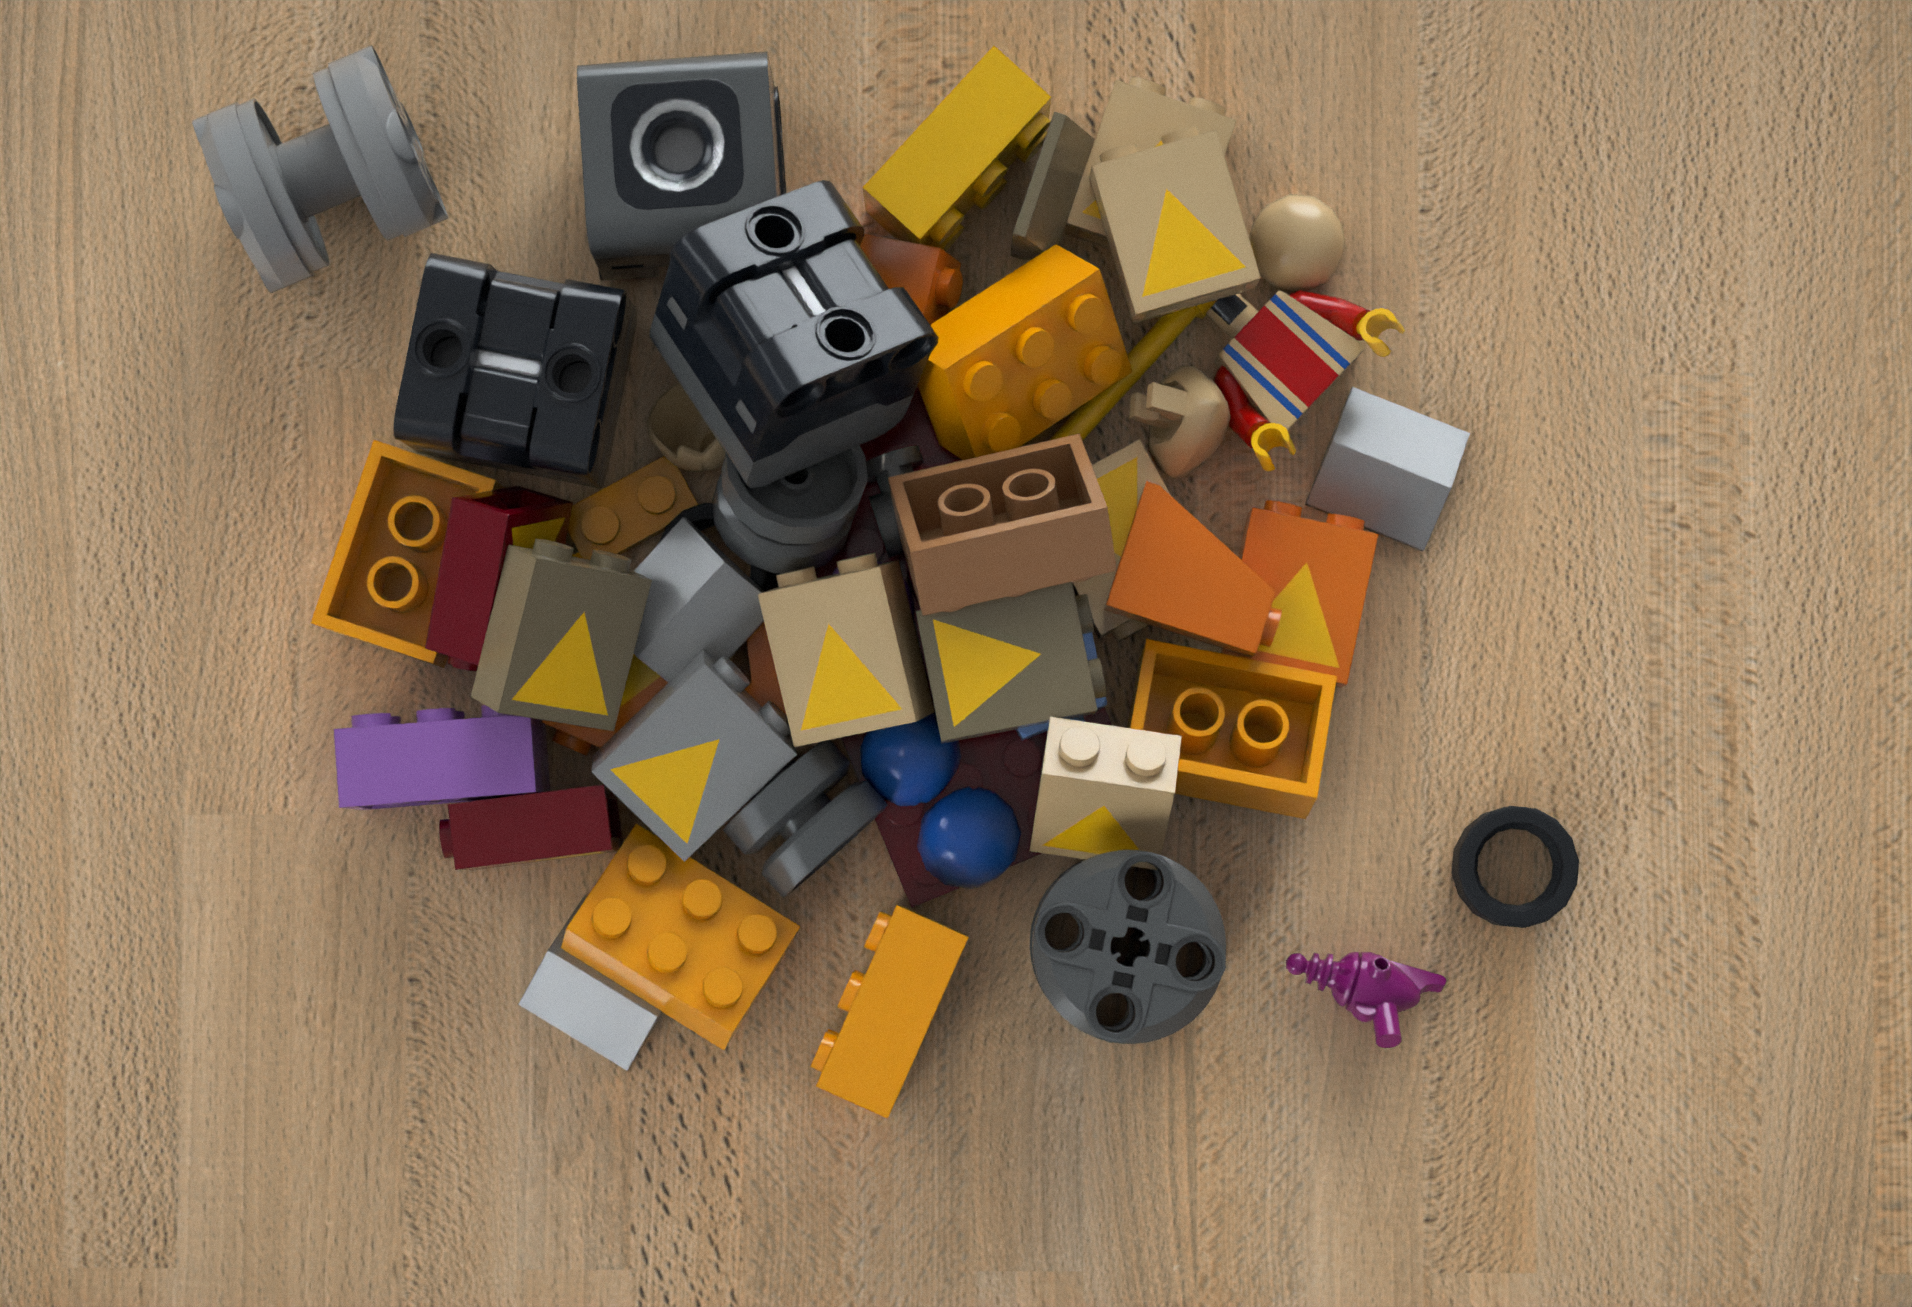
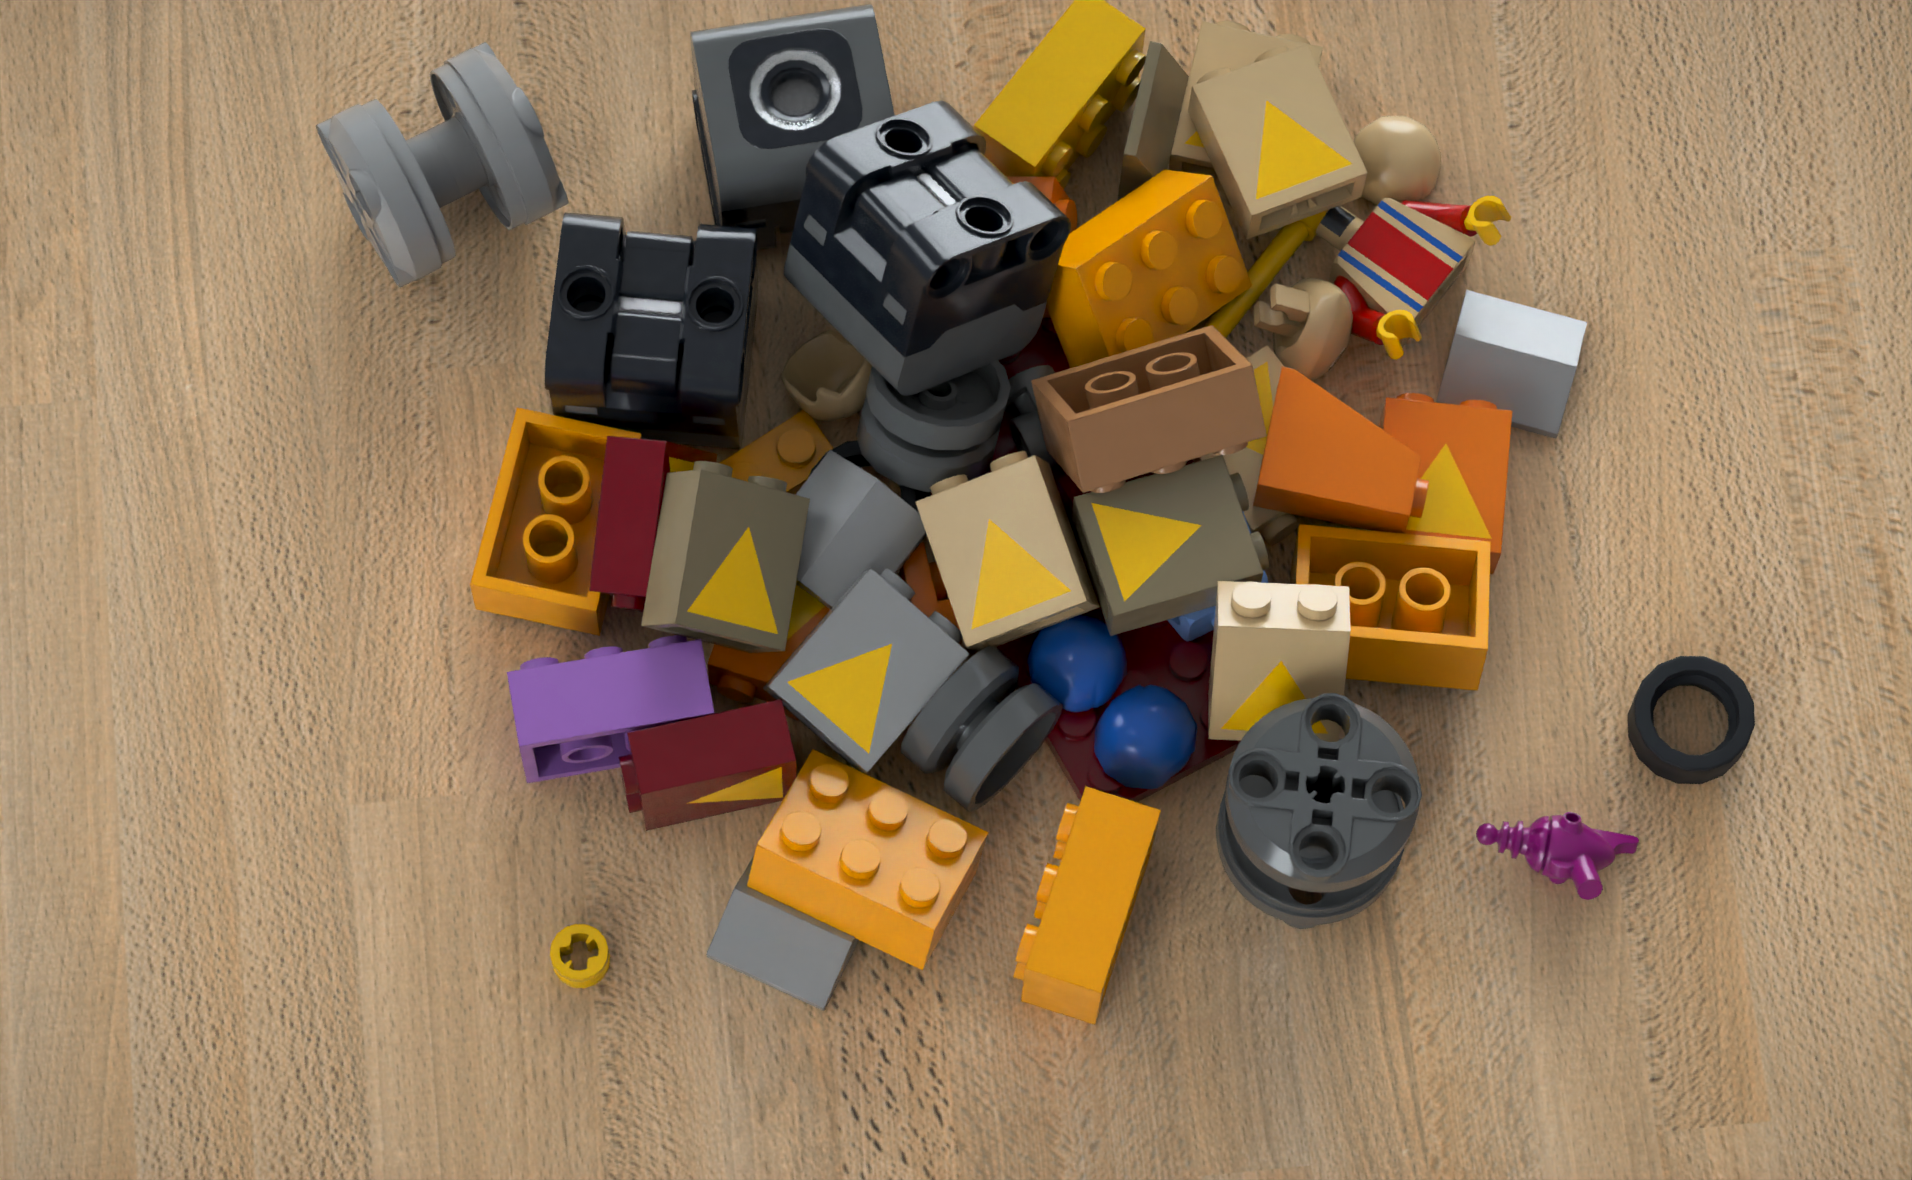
camera: 10 degrees left, 15 degrees down
(407, 1009) = (596, 965): none -> yellow bush

